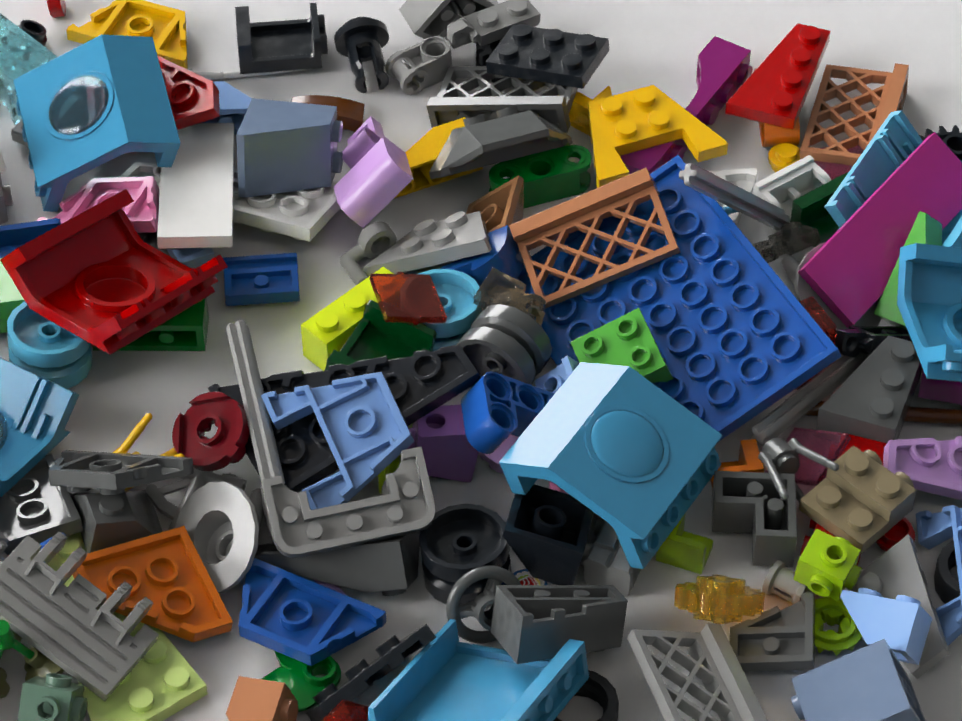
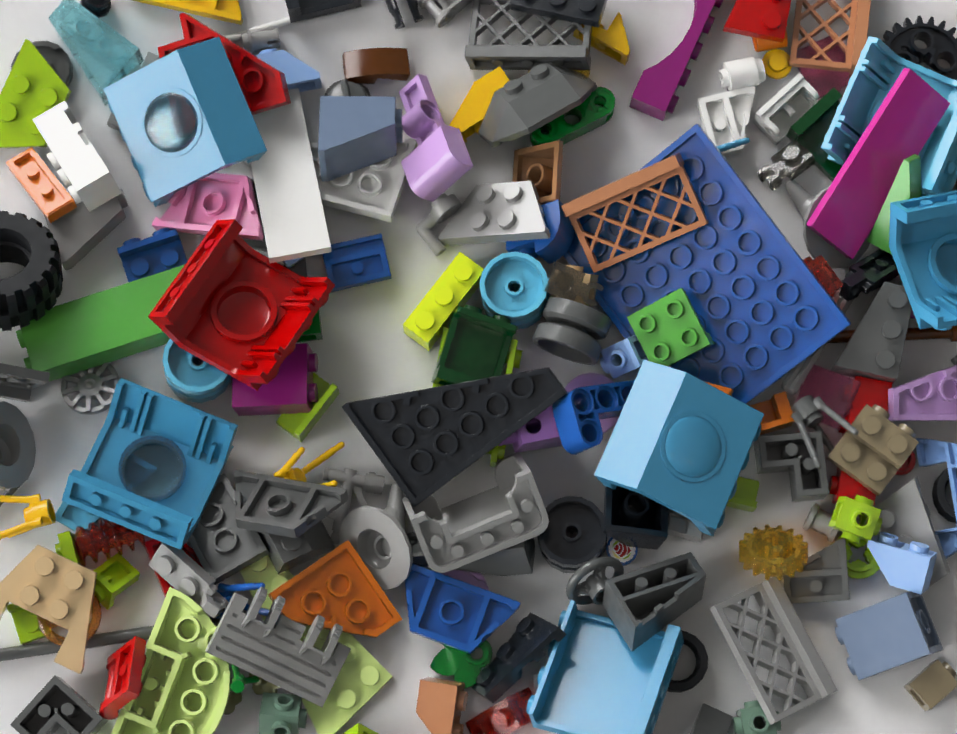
camera: 10 degrees left, 30 degrees up
(138, 375) = (287, 393): none -> magenta brick
(168, 405) = (302, 423): none -> lime panel
(226, 445) = (365, 438): dark red plate -> none
(255, 409) = (385, 427): light grey axle -> none
(359, 425) = (476, 449): medium blue wing -> none
(408, 298) = (489, 297): clear red piece -> none
(642, 121) = (649, 57): yellow wing -> none
(733, 196) = (747, 159): light grey axle -> none
(746, 155) = (742, 73): none -> white brick

